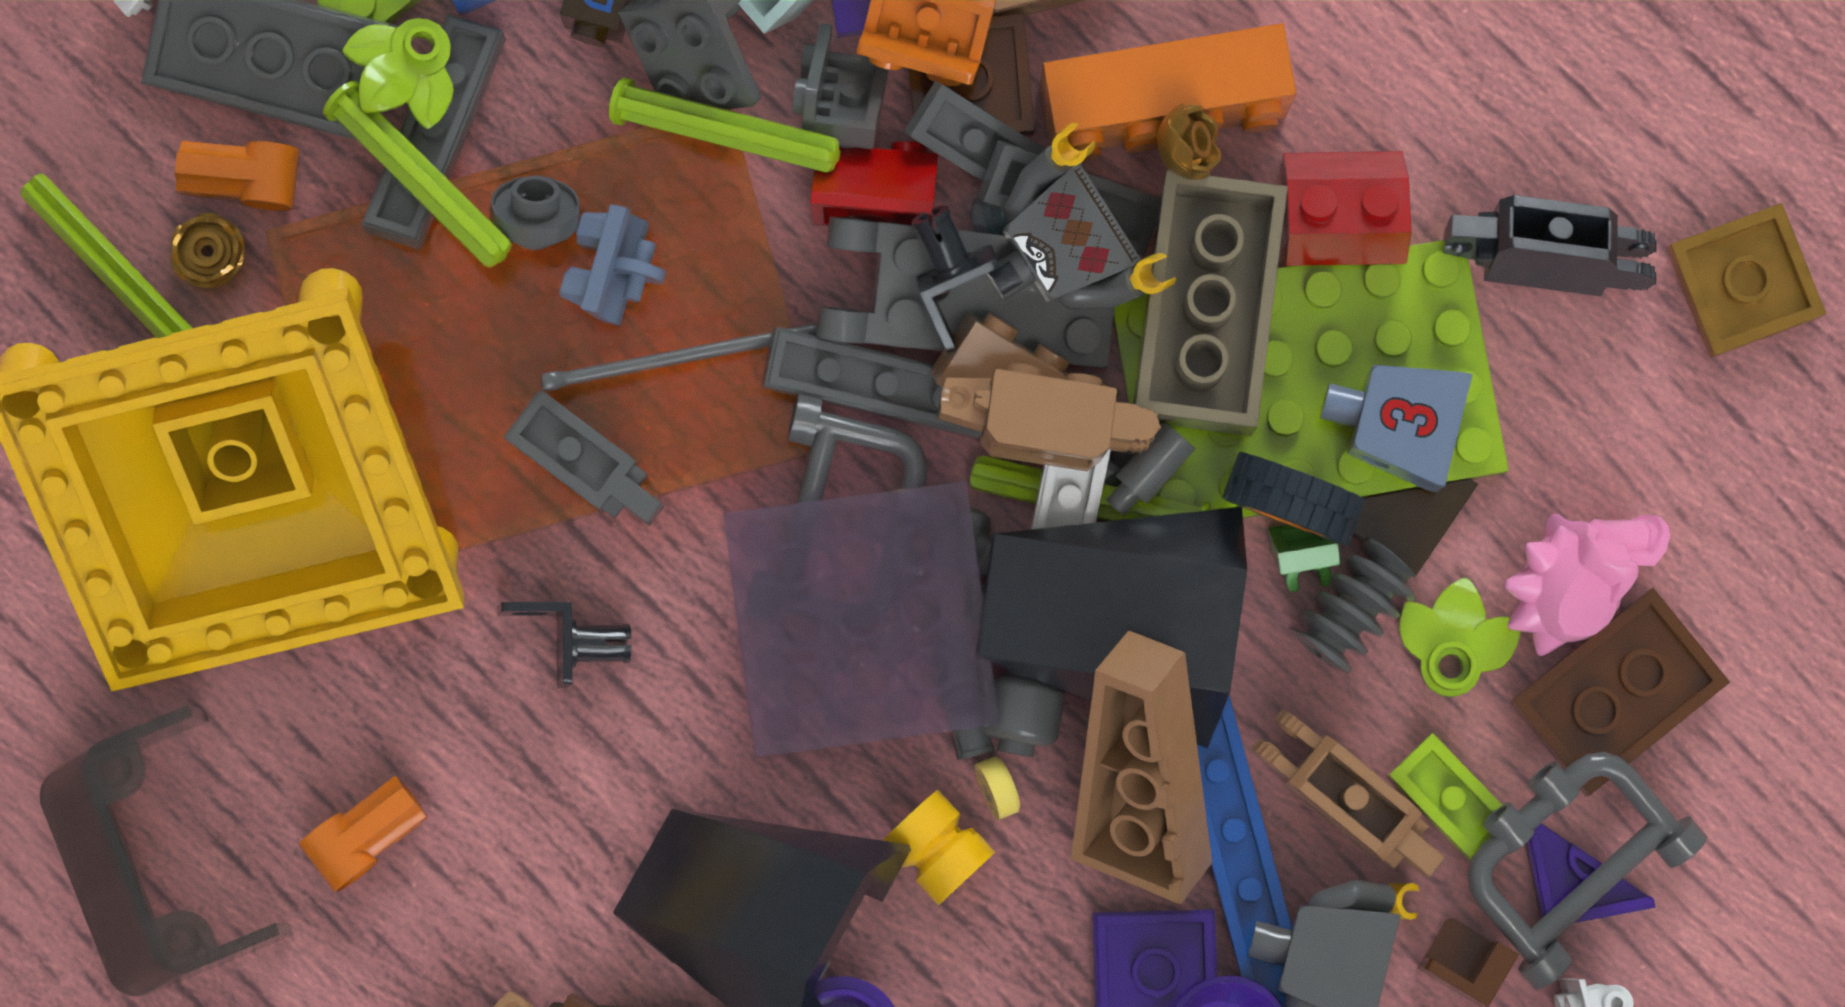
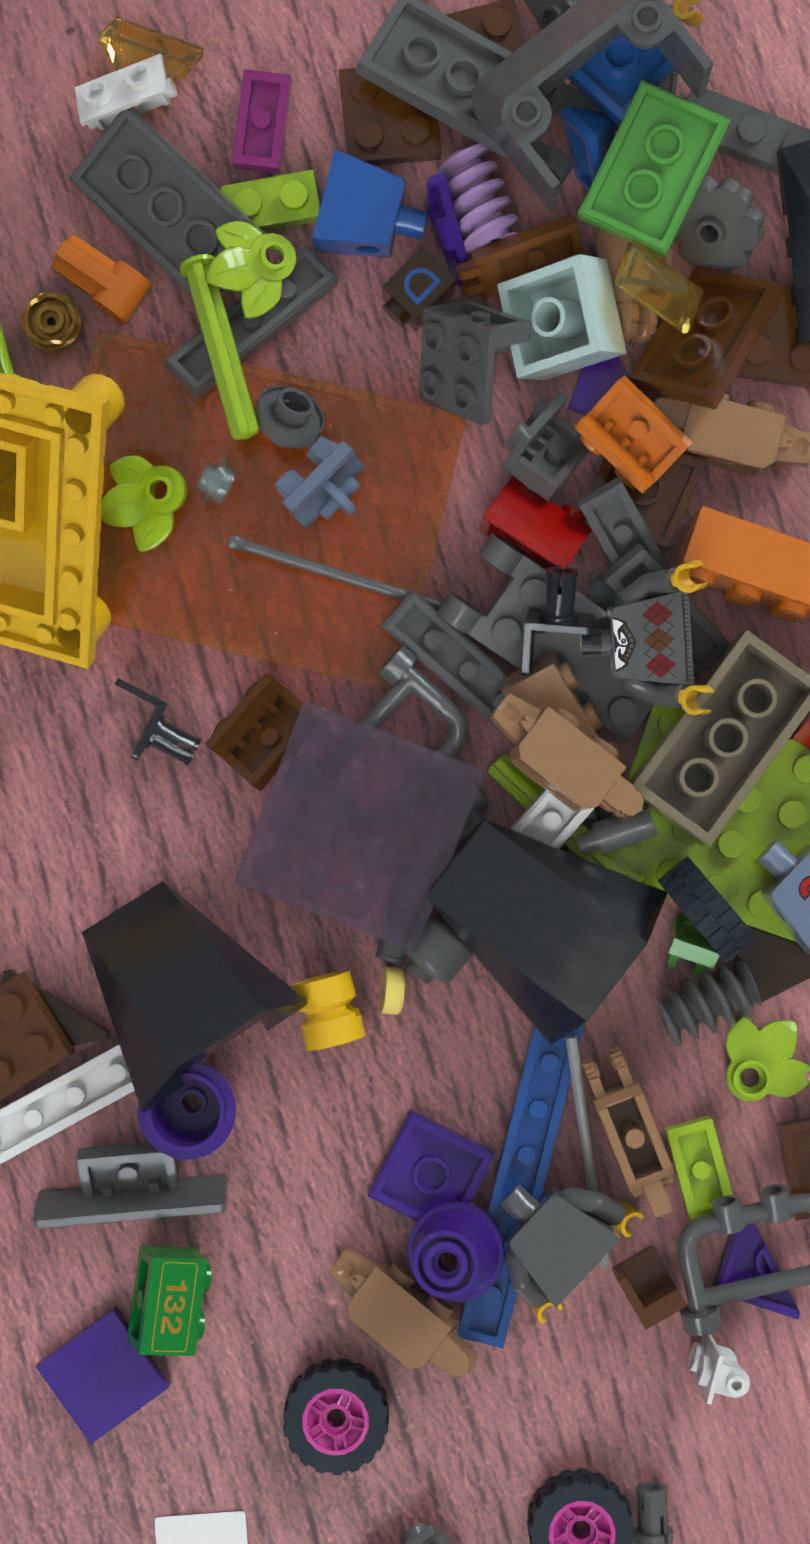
camera: 30 degrees right, 5 degrees up
(419, 398) = (136, 502): none -> lime plate
(491, 326) = (215, 481): none -> clear light blue plate
(582, 459) = (228, 608): dark grey hinge -> none
(689, 579) = (257, 731): none -> reddish brown bracket
(722, 127) = (452, 428): lime axle -> none
(1142, 774) = (495, 1043): medium nougat wedge -> none
(1189, 142) = (773, 618): pearl gold plate -> none
(1296, 822) = (583, 1121): none -> light grey axle

